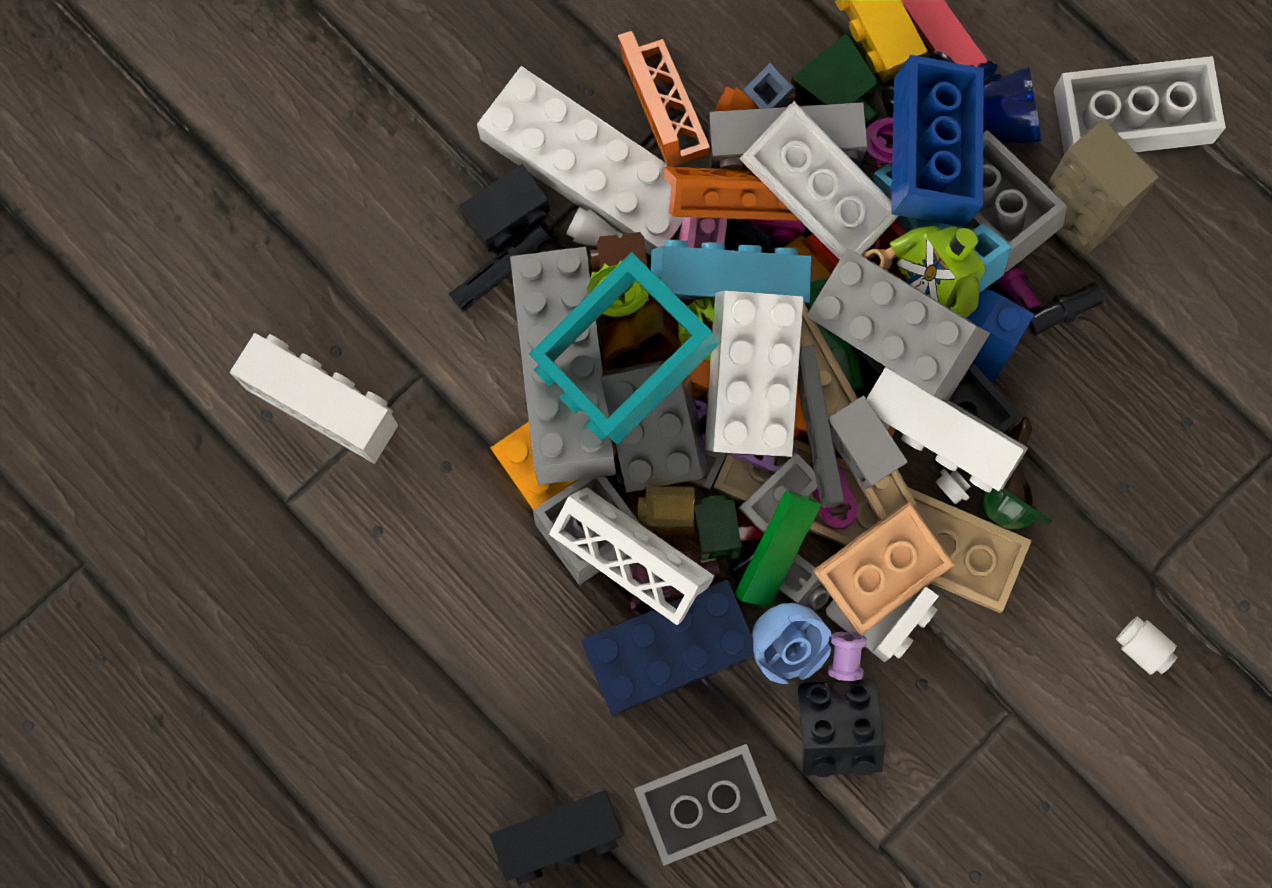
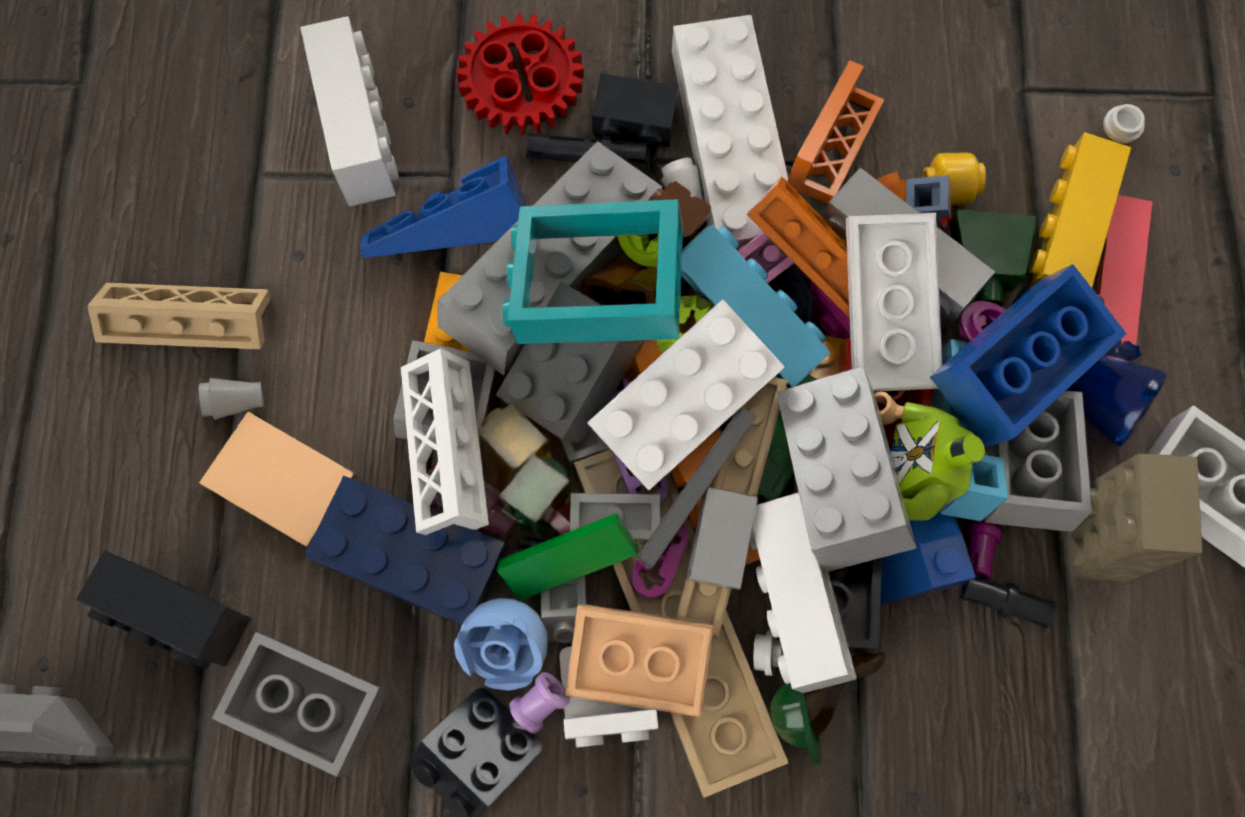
camera: 40 degrees right, 5 degrees down
(348, 652) = (180, 316): none -> tan fence
(415, 228) = (554, 64): none -> red gear
(440, 669) = (228, 397): none -> light grey cone
(467, 389) = (470, 215): none -> blue wedge
(530, 688) = (275, 478): none -> light nougat tile
(764, 48) = (965, 175): none -> yellow head

